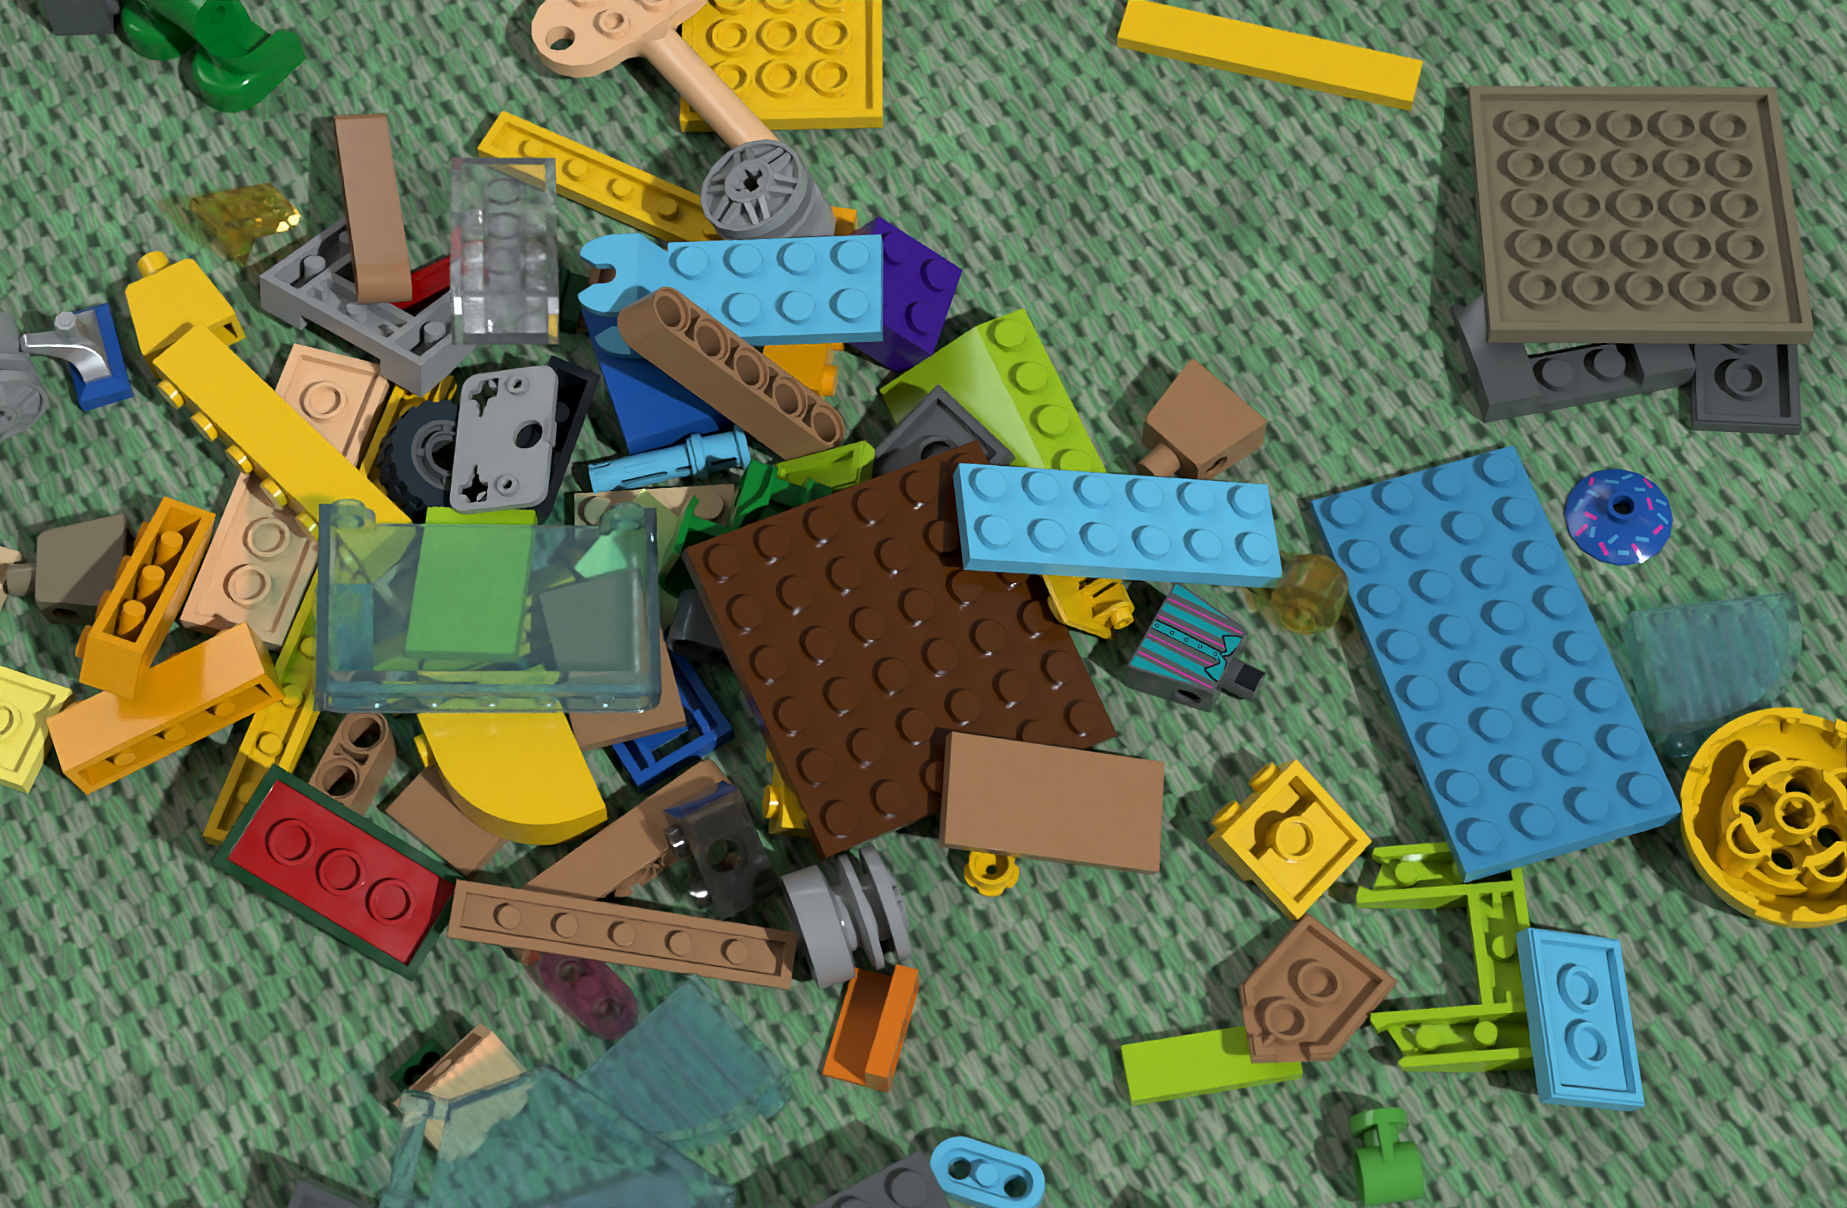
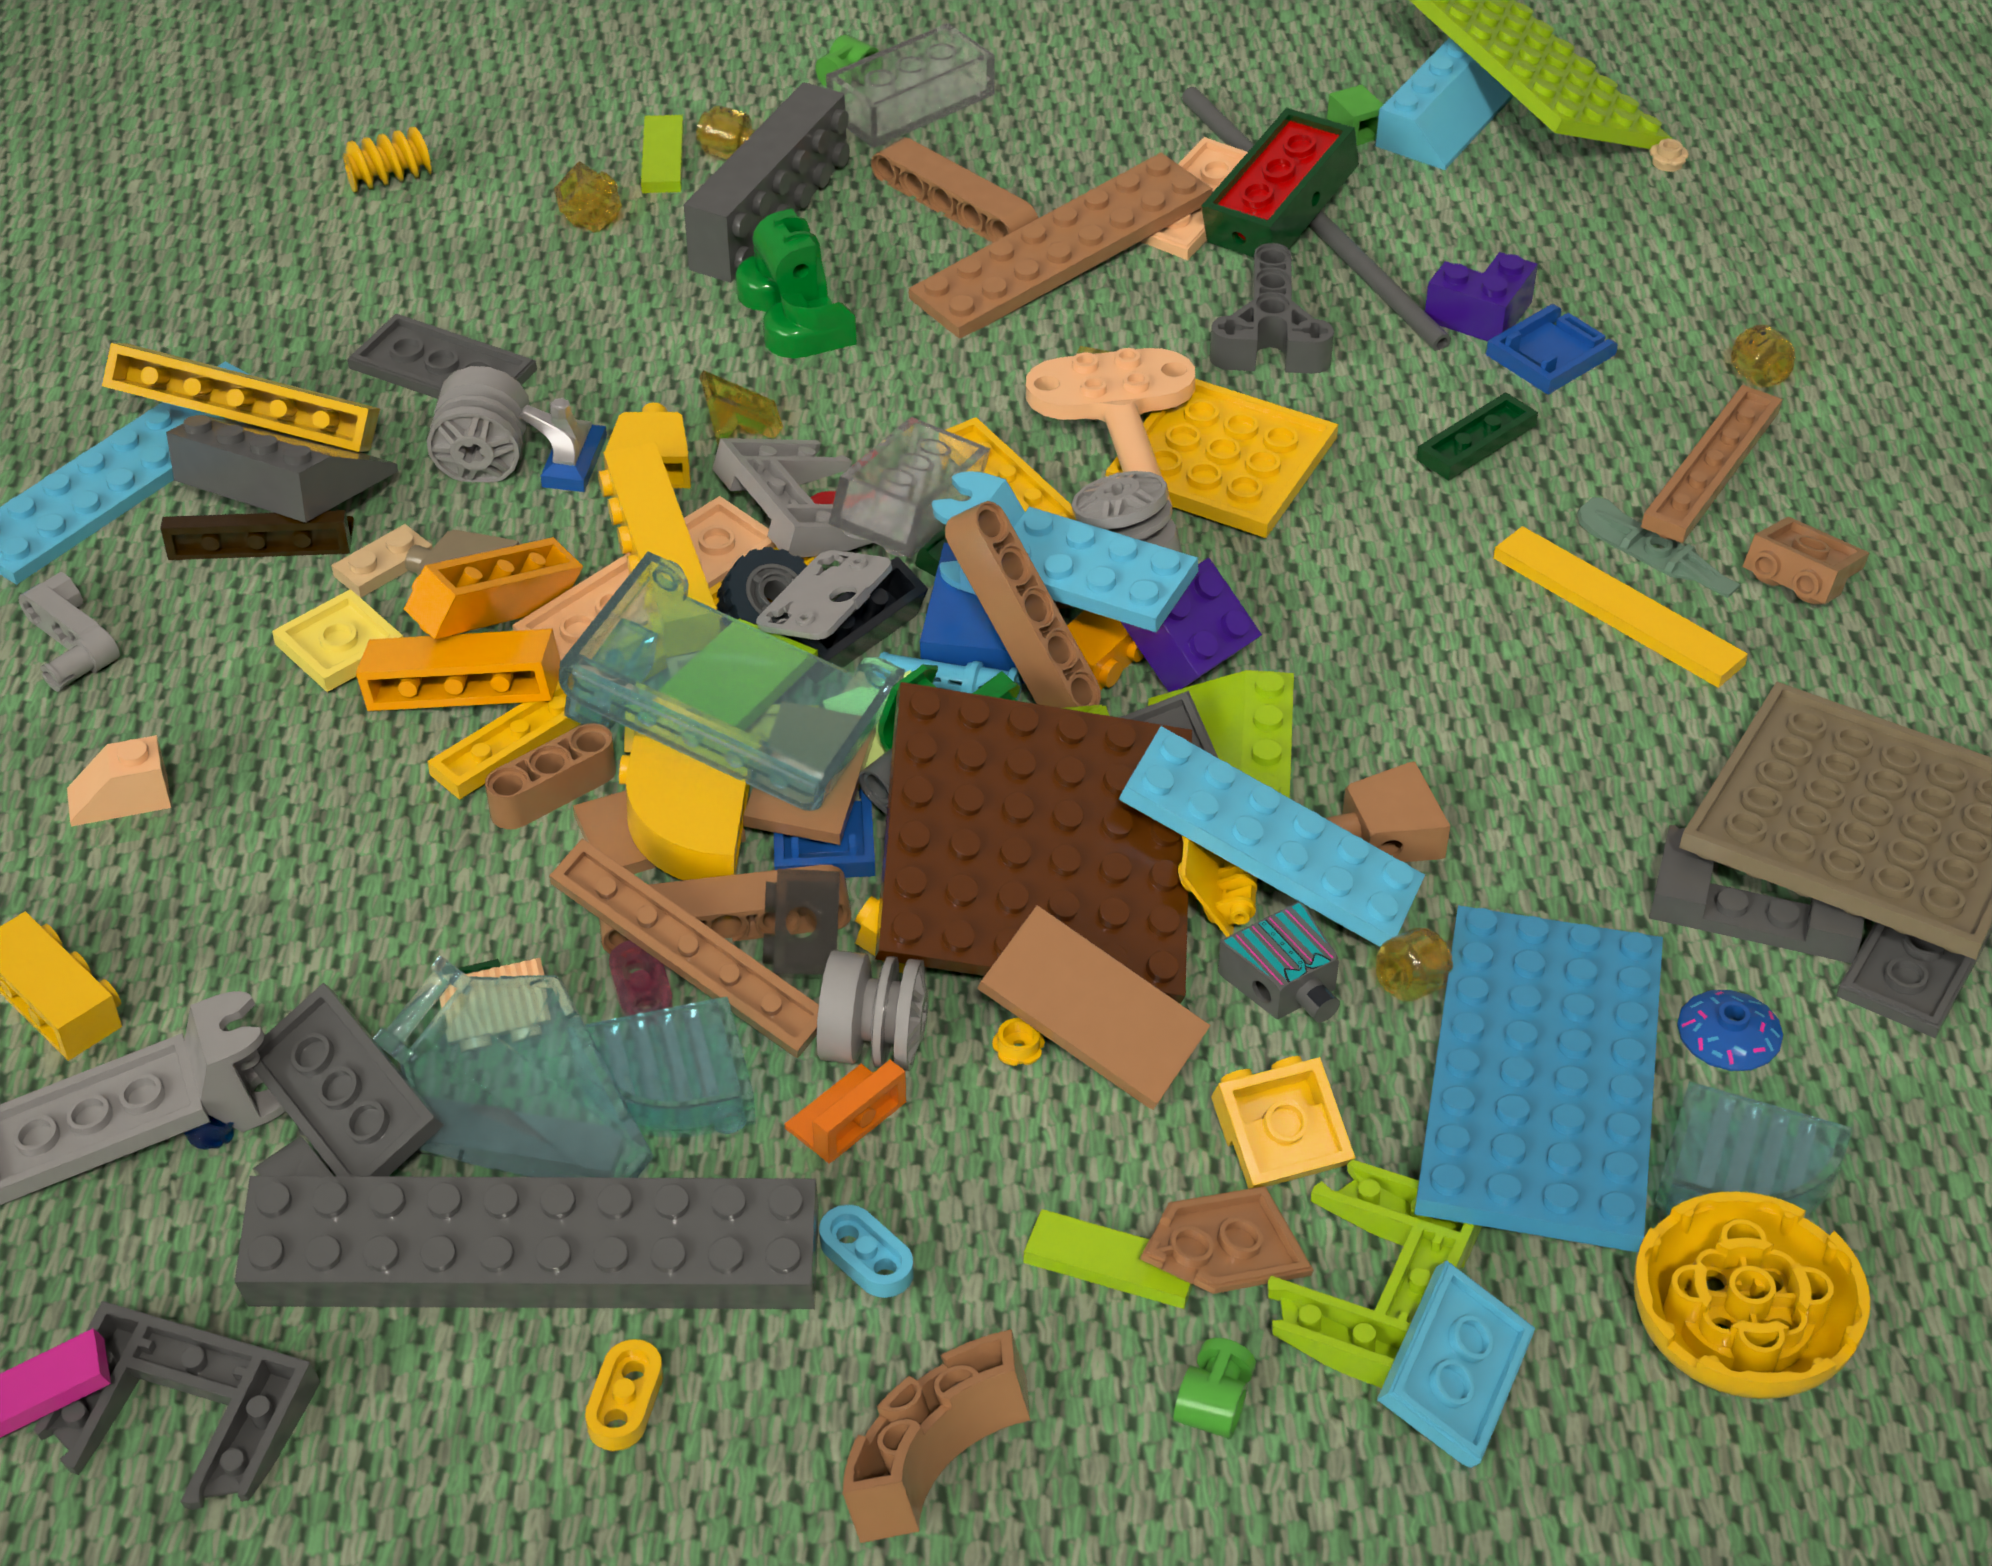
camera: 25 degrees right, 20 degrees down
(339, 871) = (498, 803): red brick -> none
(372, 209) = (832, 432): medium nougat beam -> none

